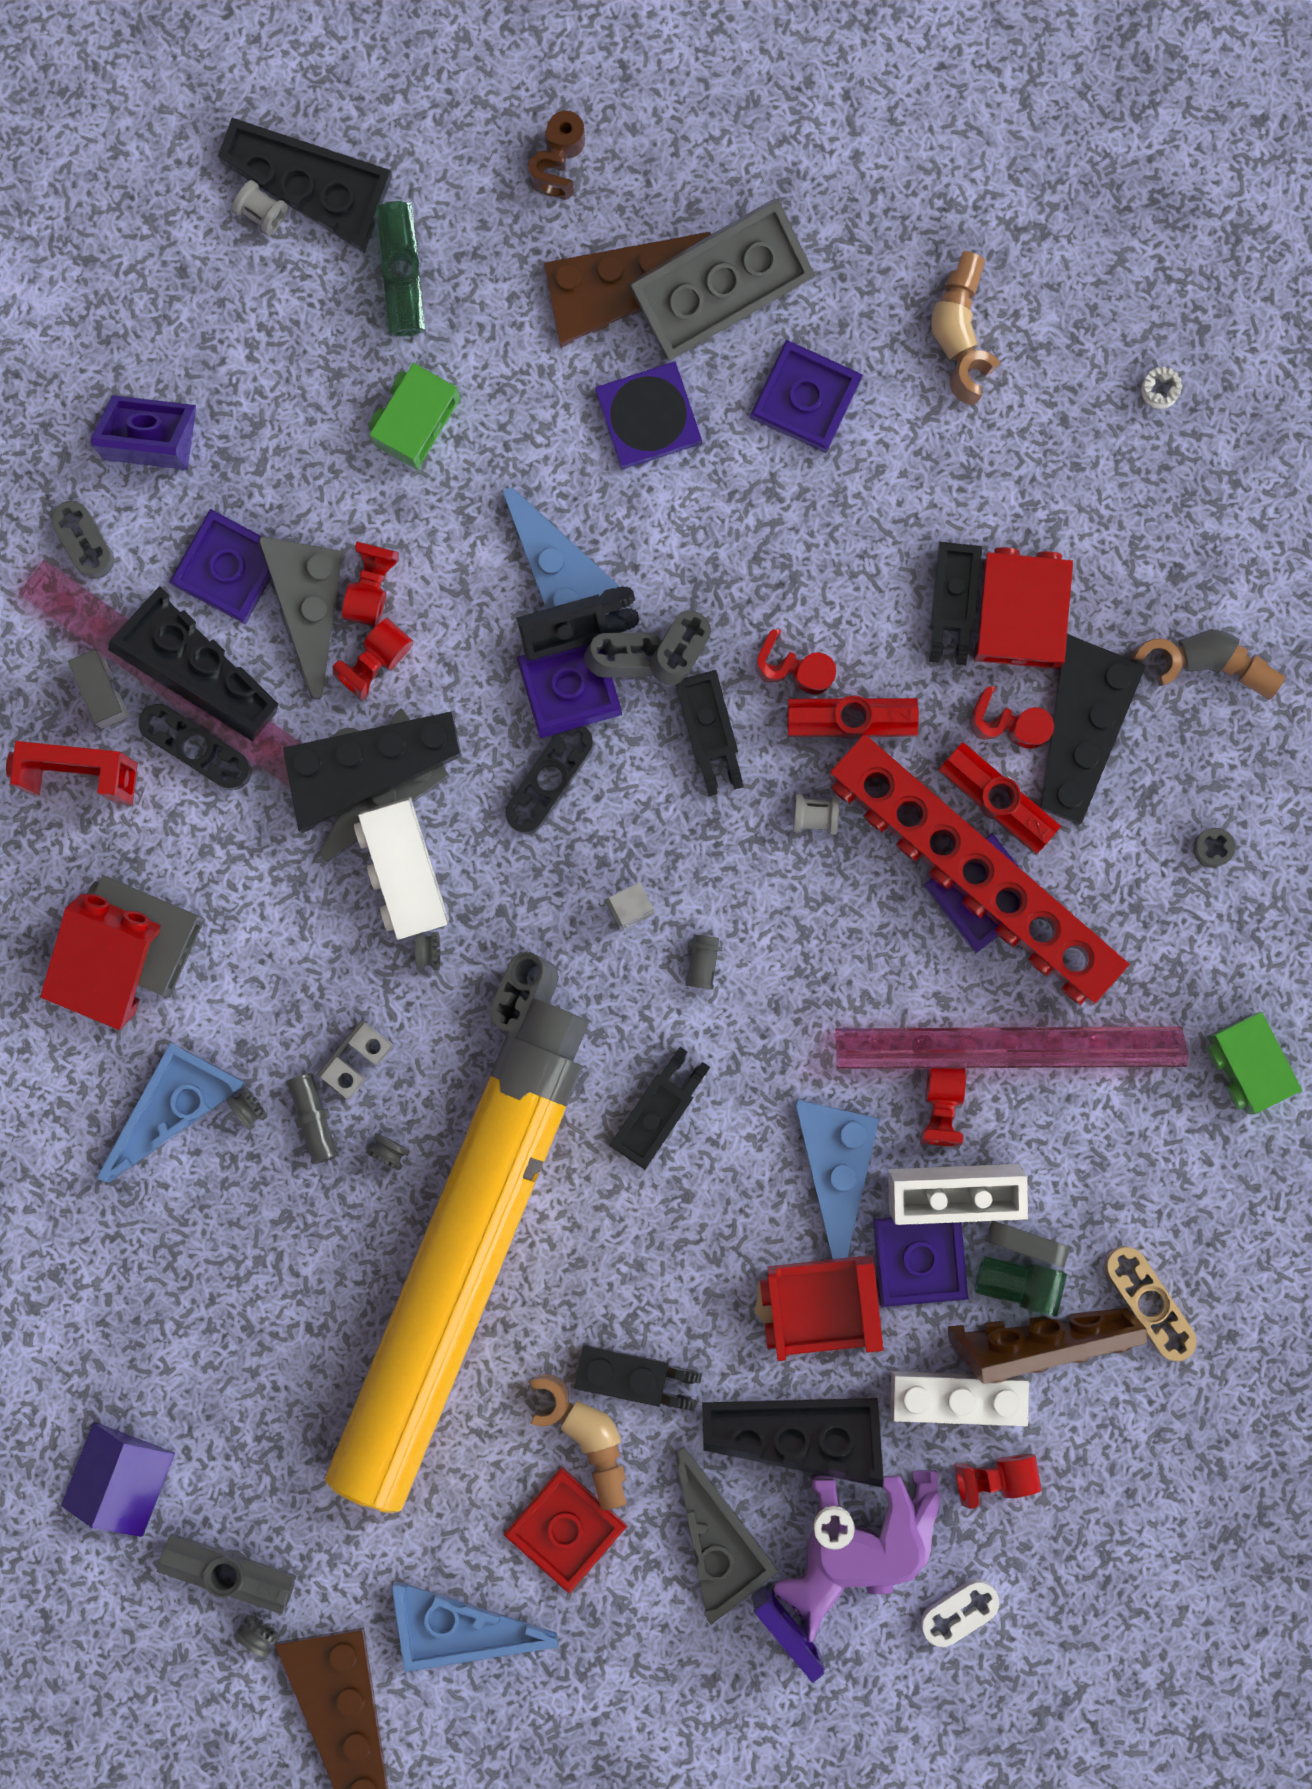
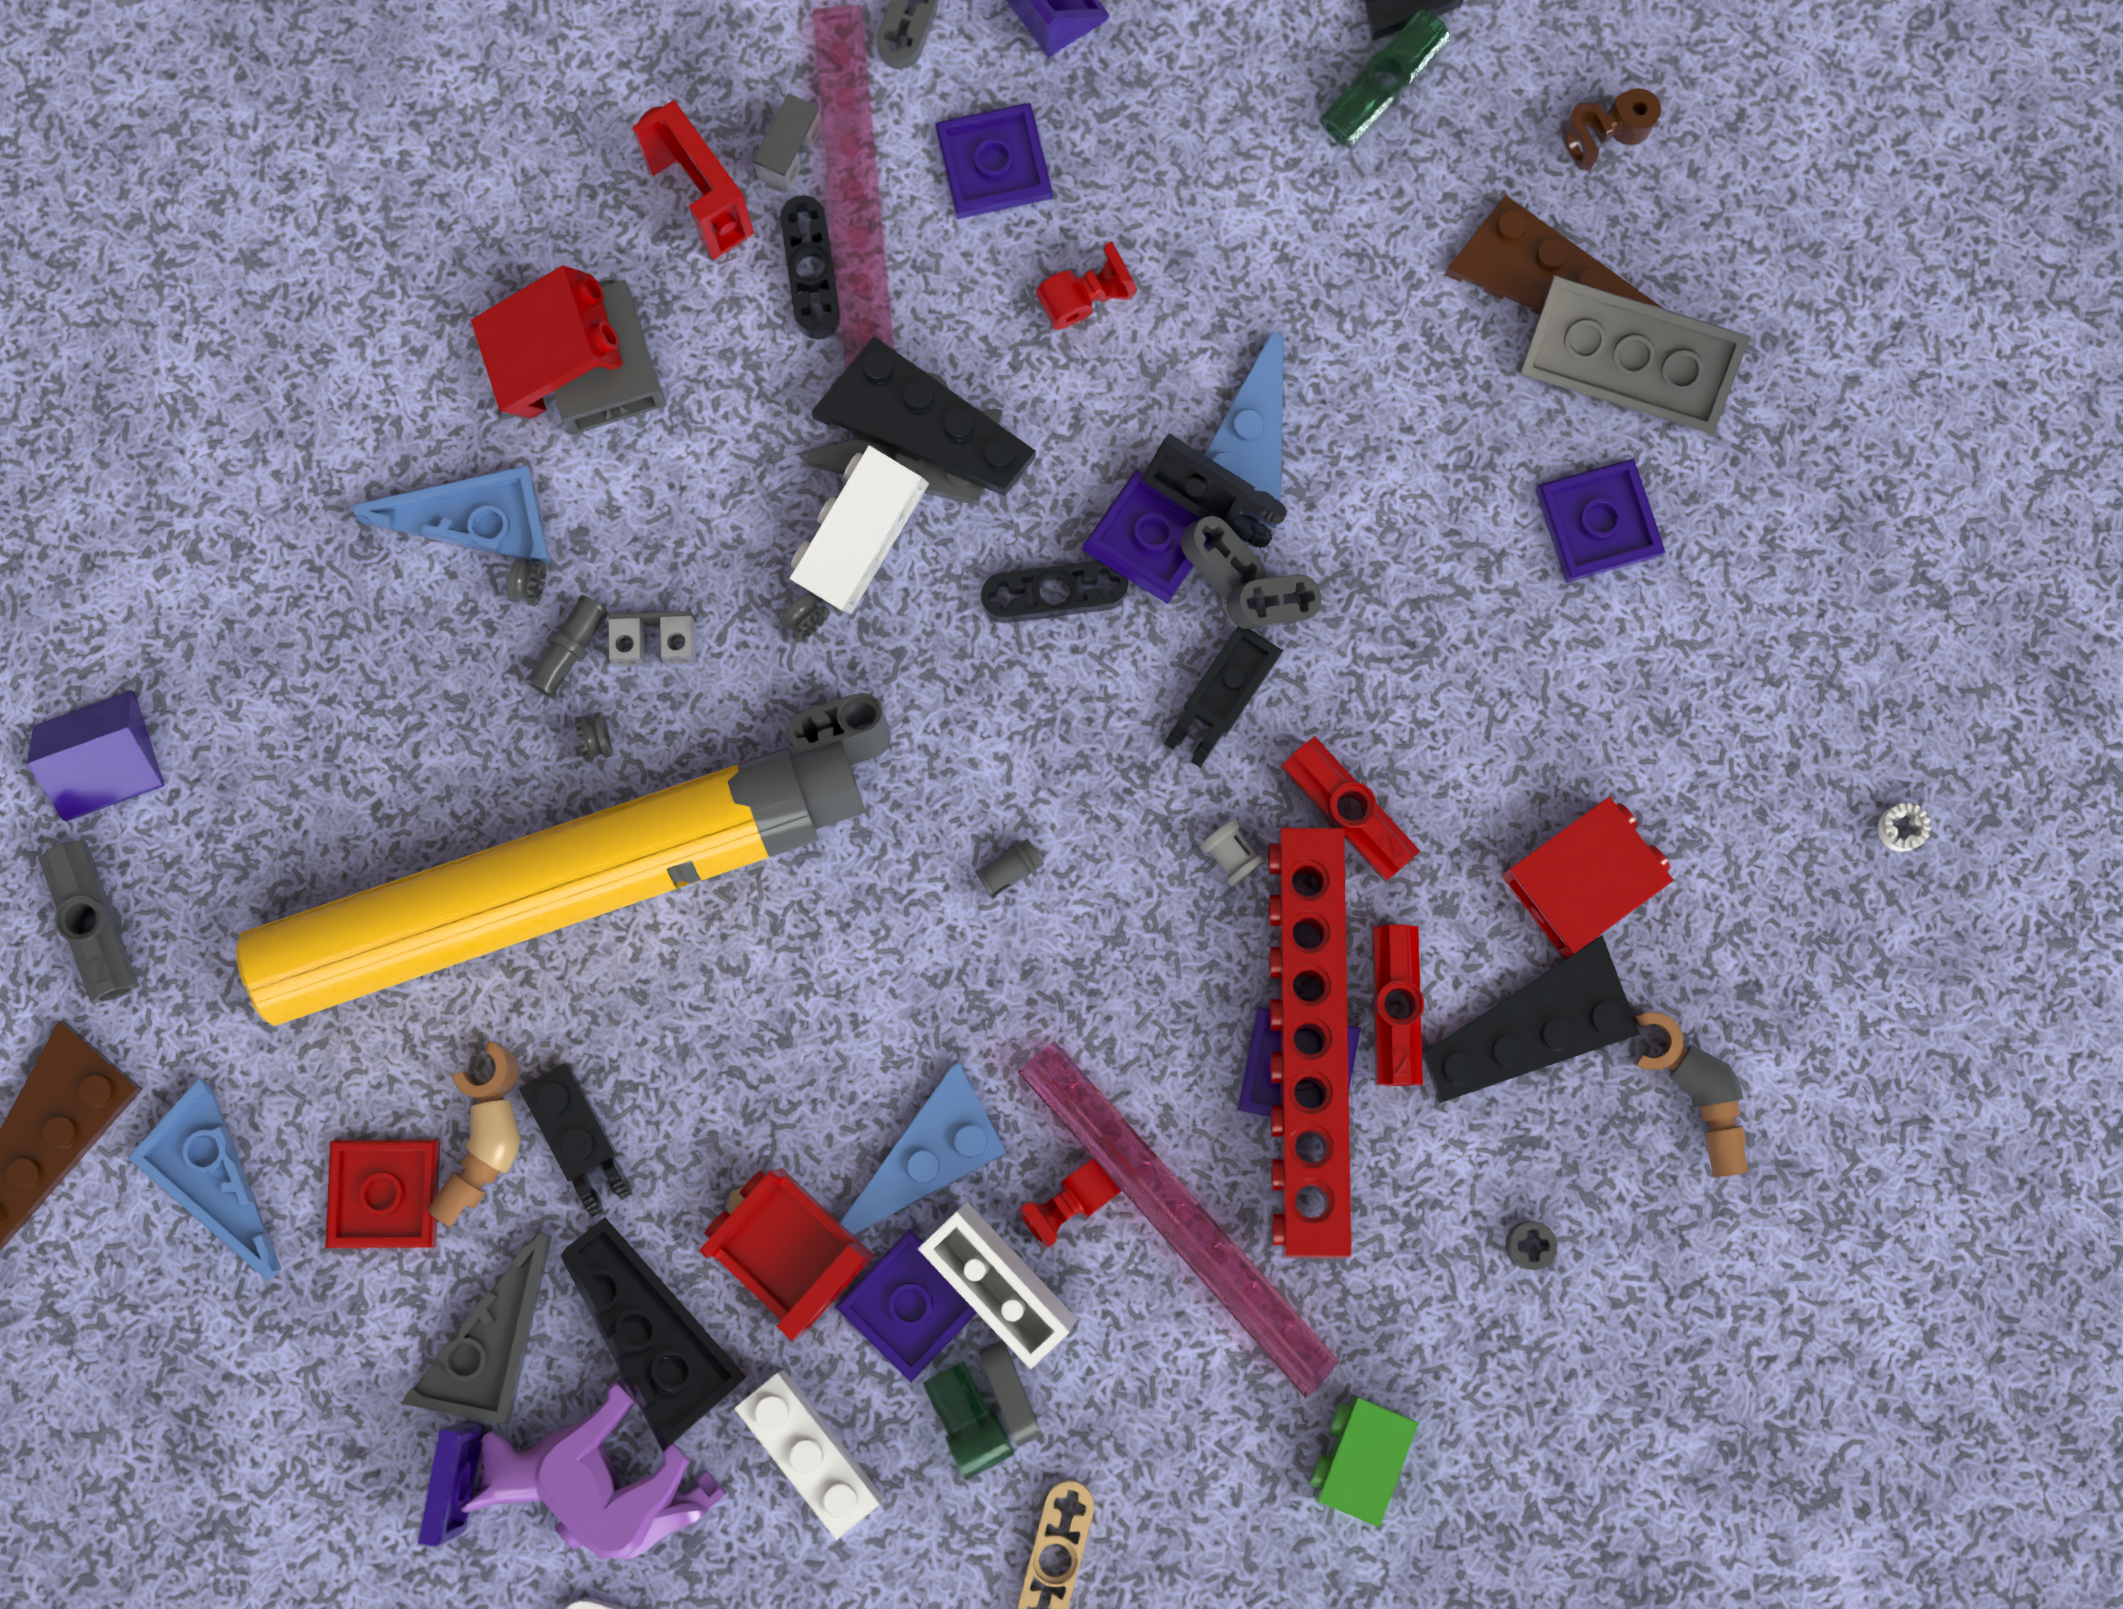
camera: 40 degrees right, 5 degrees down
(181, 658) = (876, 187): black wing -> none
(256, 1637) = (53, 997): dark grey bush -> none
(306, 589) = (1032, 241): dark grey wing -> none
(383, 648) = (1042, 350): red leg -> none
(413, 415) = (1269, 199): bright green brick -> none
(630, 906) = (1000, 757): flat silver piece -> none
(648, 415) = (1455, 399): black tile -> none
(657, 1113) = (836, 945): black hinge -> none
(811, 674) = (1357, 738): red leg -> none
(824, 1517) = (602, 1441): white bush -> none
(954, 330) = (1780, 597): medium nougat piece -> none
(954, 597) = (1542, 806): black hinge -> none
(1012, 1476) = (780, 1568): red leg -> none
(1026, 730) = (1483, 977): red leg -> none
(1045, 1342) = (931, 1491): reddish brown wing -> none

